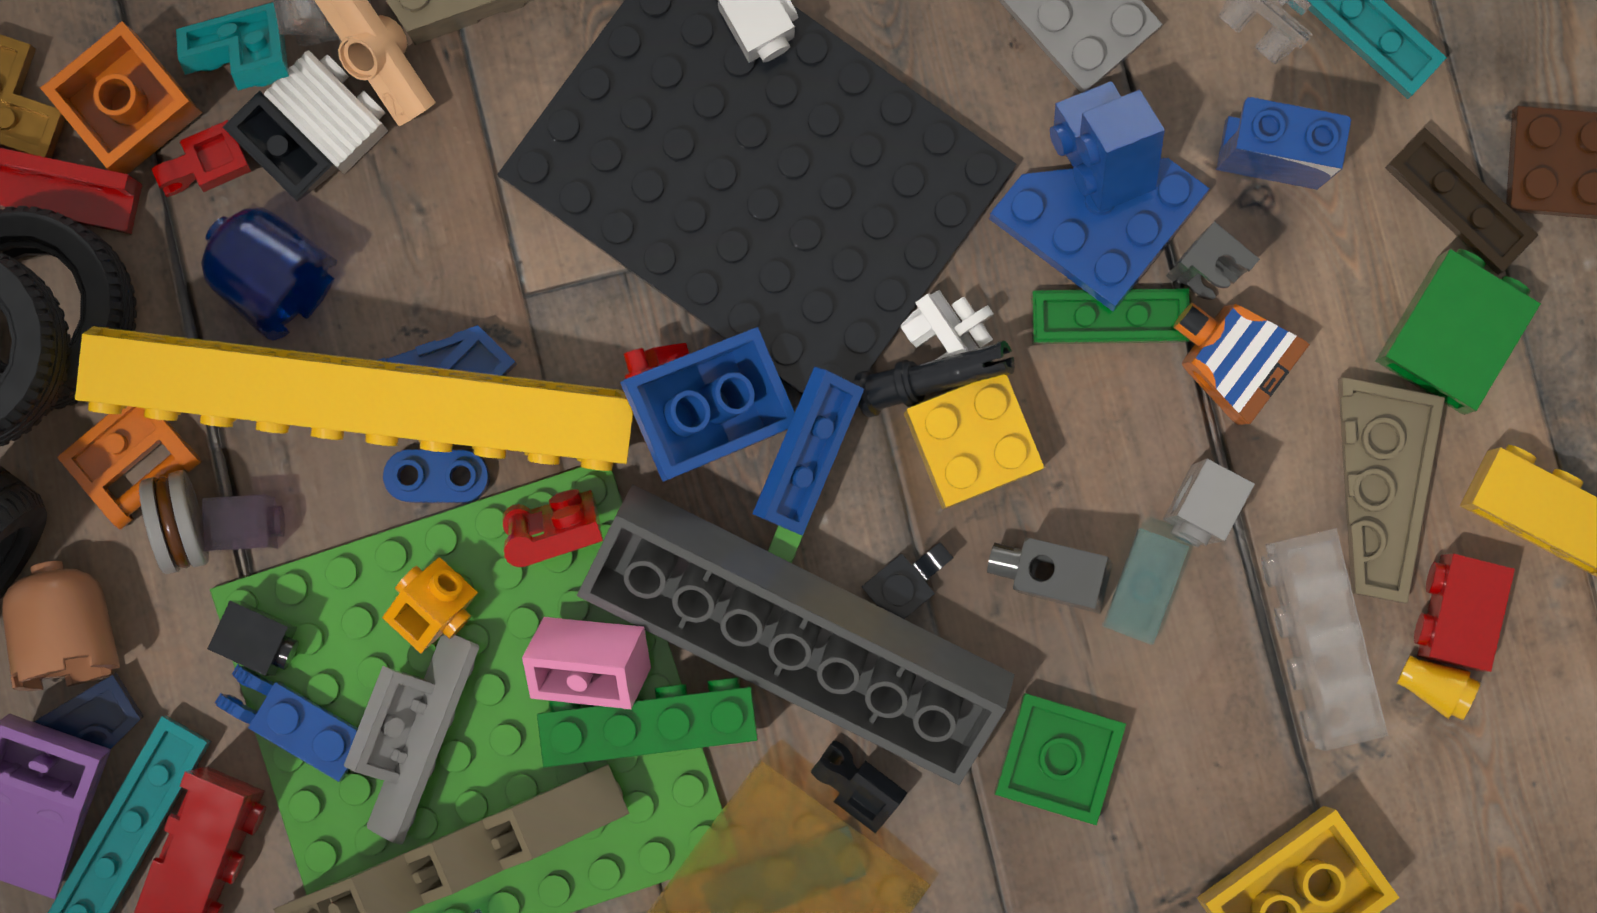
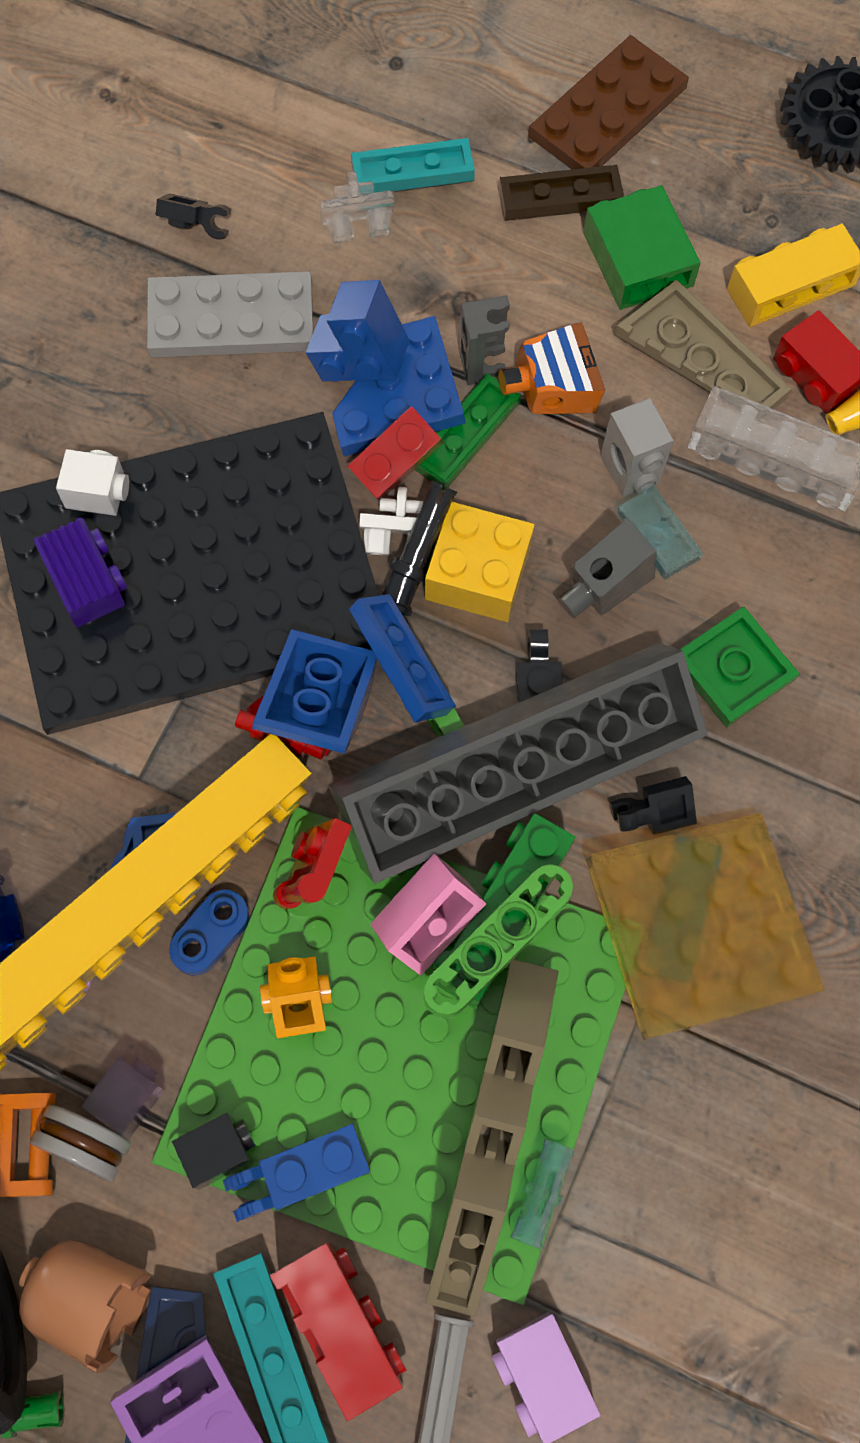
camera: 50 degrees left, 15 degrees down
(405, 732) = (374, 1090): light grey bracket -> none
(602, 753) = (494, 936): none -> bright green beam
(662, 85) = (79, 571): none -> dark purple brick
(1016, 277) = (395, 453): none -> red brick
(1284, 143) = (448, 244): blue panel -> none

